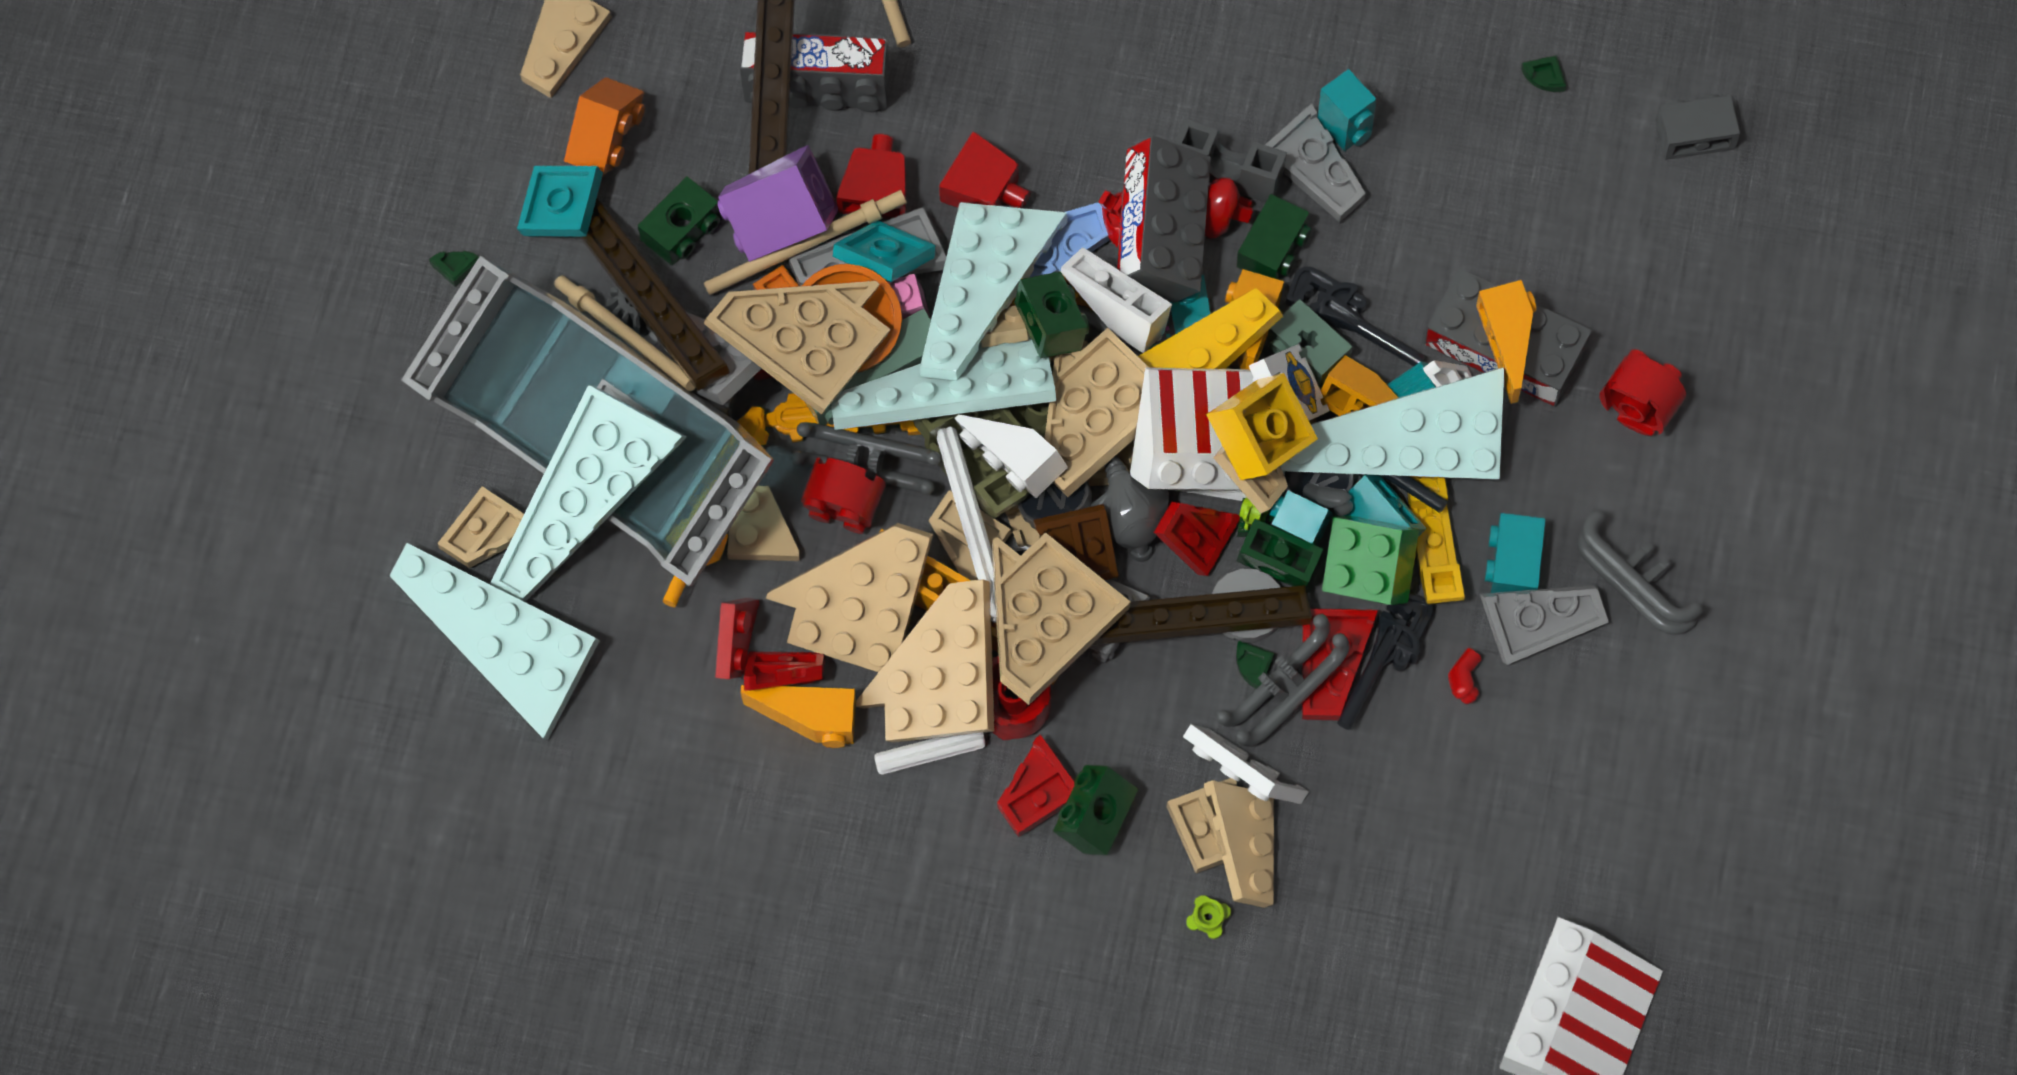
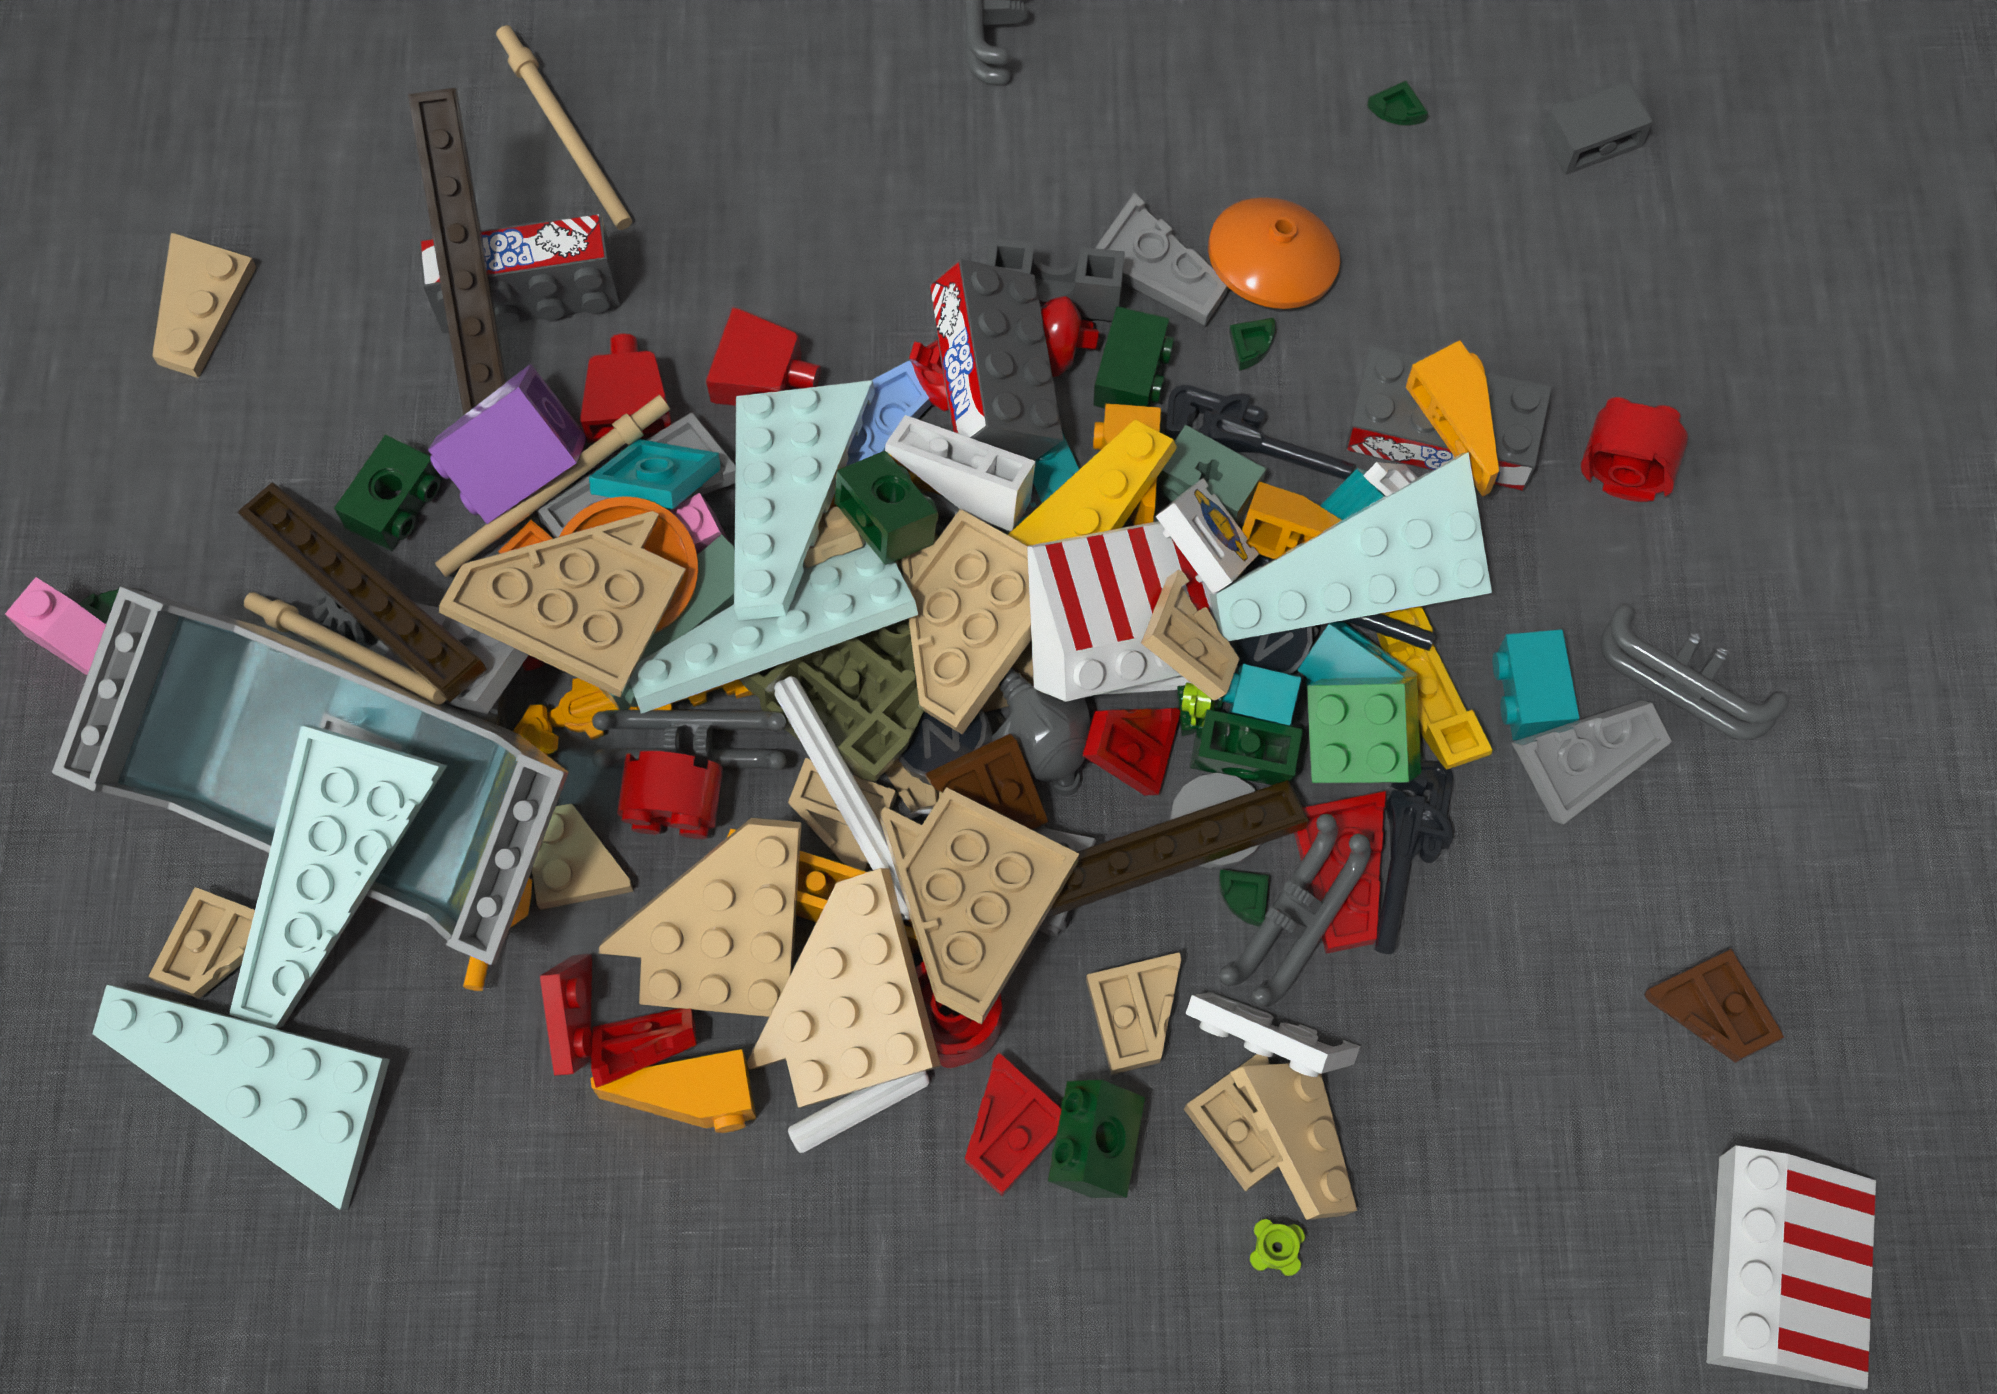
camera: 15 degrees left, 0 degrees up
(420, 274) = (57, 624): none -> bright pink slope
(560, 201) = (230, 499): teal plate -> none
(600, 122) = (263, 392): orange brick -> none
(1018, 450) = (886, 688): white slope -> none
(1148, 727) = (1134, 1010): none -> tan wing
(1262, 426) = (1196, 589): yellow brick -> none
(1329, 498) = (1290, 661): dark grey arm -> none
(1347, 110) = (1182, 188): teal brick -> none
(1374, 242) = (1251, 341): none -> dark green tile
(1408, 189) = (1273, 252): none -> orange dish
(1461, 679) = (1510, 853): red arm -> none
(1583, 822) = (1719, 1007): none -> reddish brown wing

